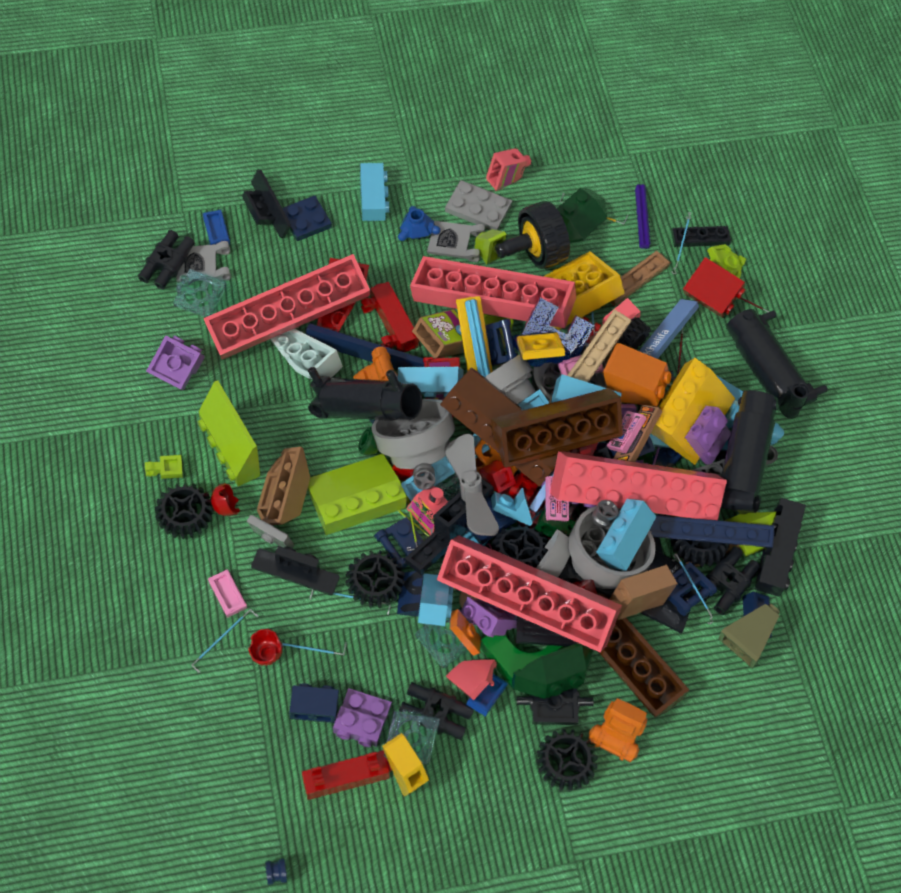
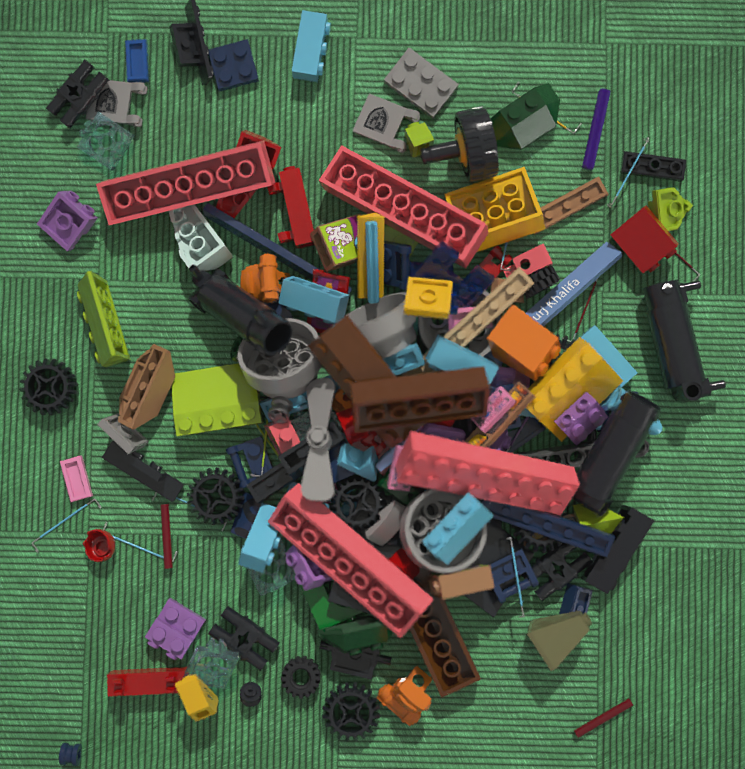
camera: 25 degrees right, 25 degrees up
(168, 466) = (41, 335): lime plate -> none
(224, 501) = (88, 385): red hair -> none
(314, 703) = (132, 610): dark blue brick -> none
(332, 629) = (166, 536): none -> dark red bar
(417, 225) = (348, 97): blue rock -> none
(457, 765) = (250, 694): none -> black wheel
(465, 632) = (282, 577): orange plate -> none
(473, 676) = (283, 617): coral slope -> none
(488, 697) = (294, 633): blue tile -> none
(505, 724) = (294, 688): none -> black tyre
(507, 168) = (462, 43): coral torso -> none
(604, 514) = (446, 505): flat silver wheel -> none
(820, 715) = (604, 717): none -> dark red bar

